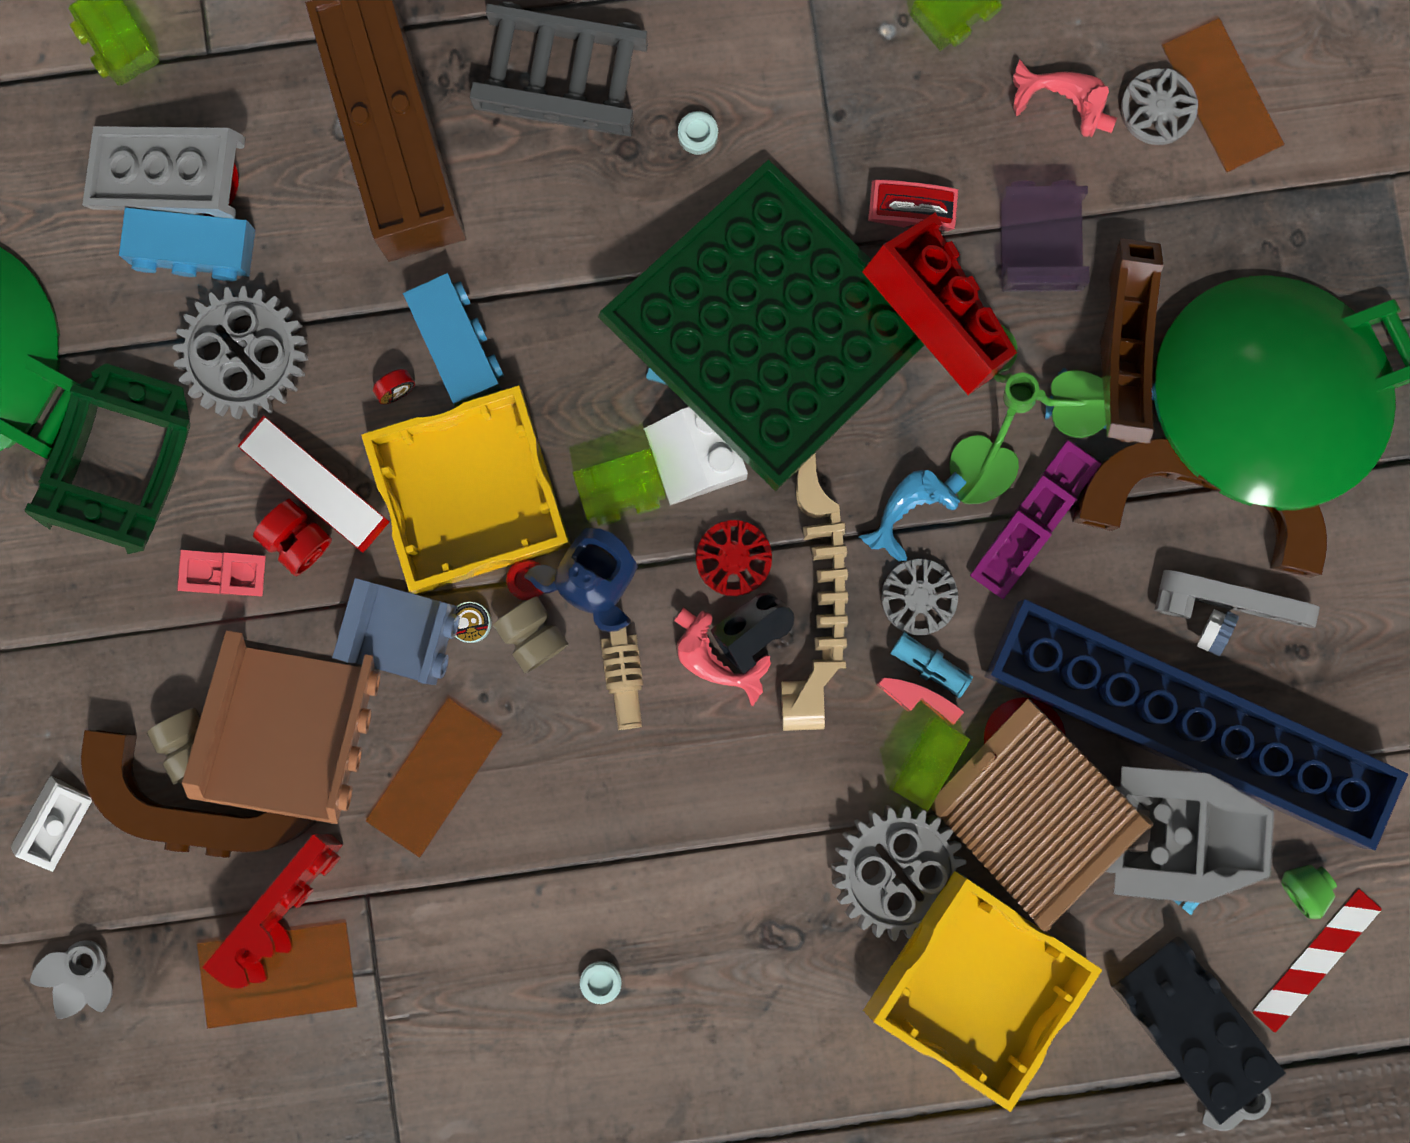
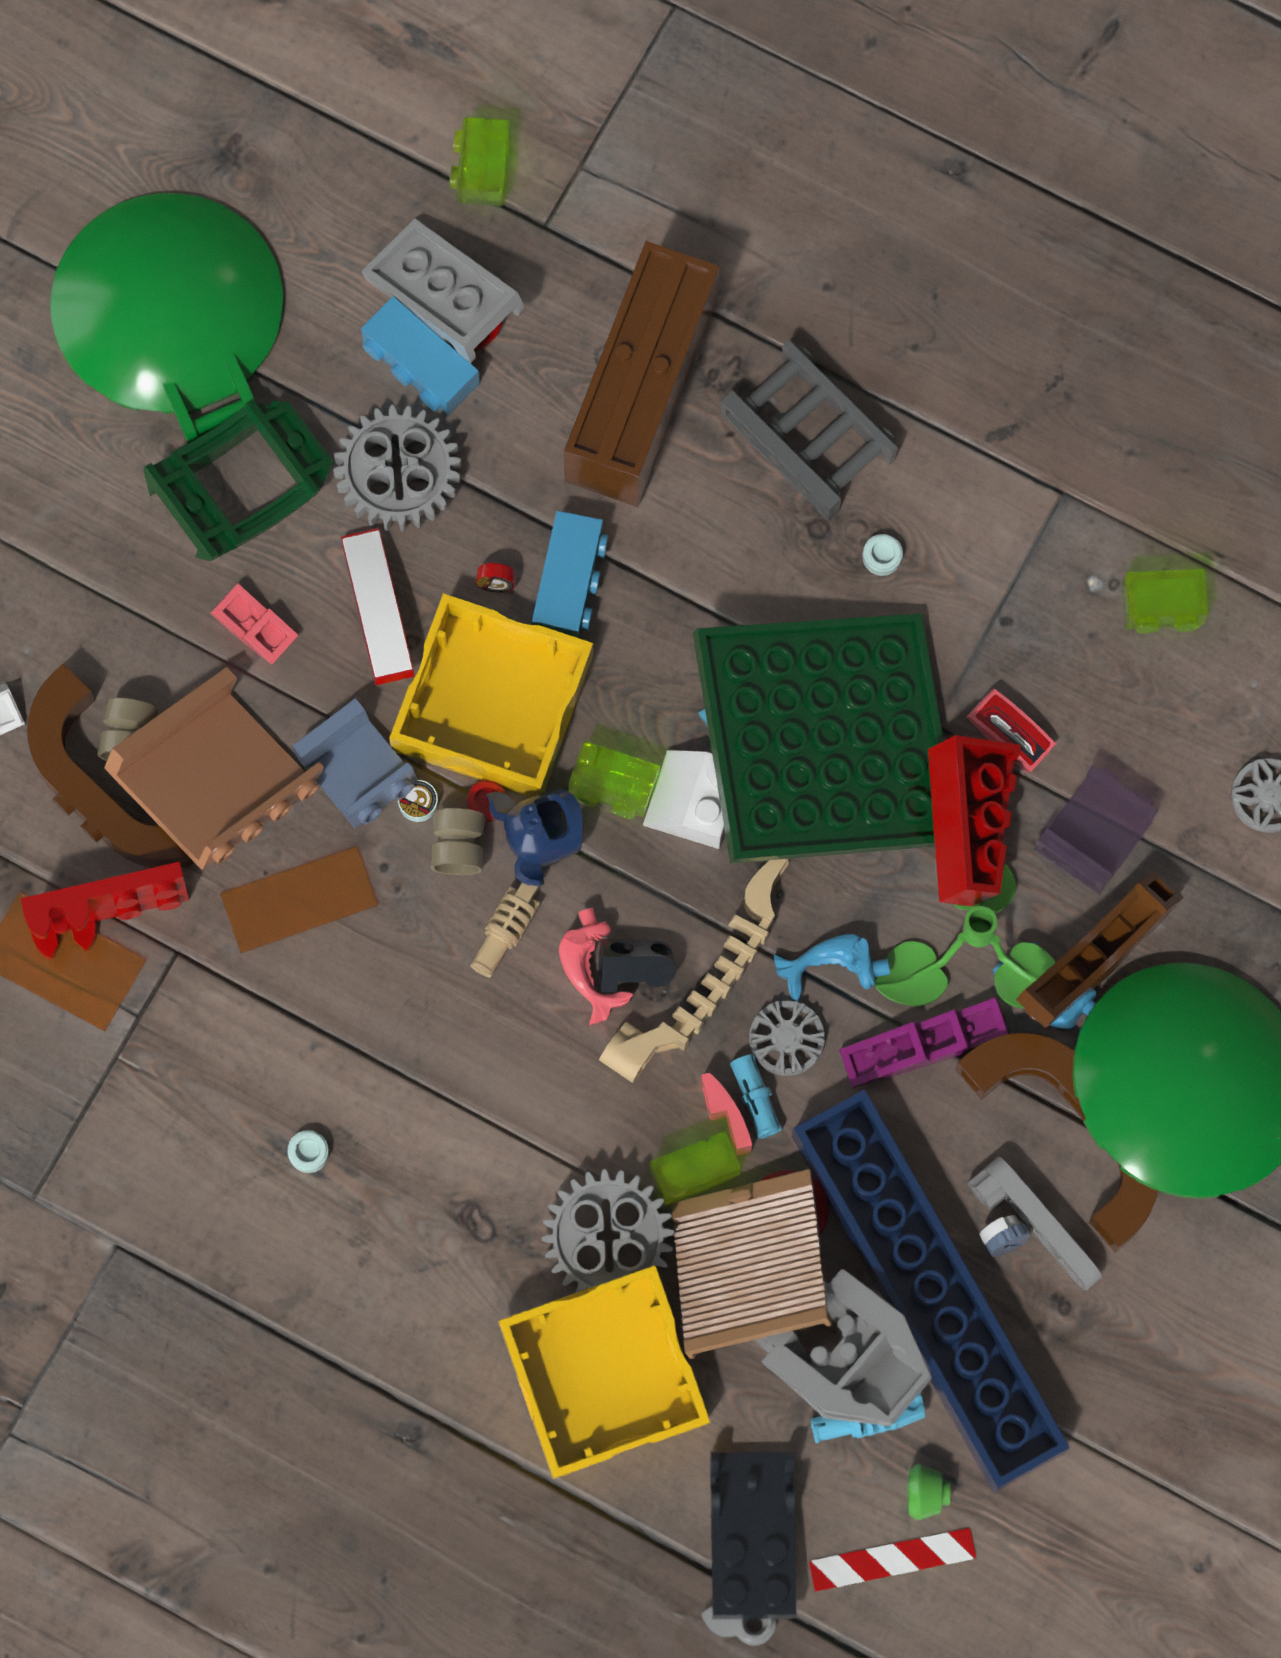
camera: 35 degrees right, 10 degrees down
(282, 527) = (330, 635): red wheel -> none
(733, 558) = (662, 901): red wheel -> none
(1083, 89) = (1215, 737): coral animal -> none

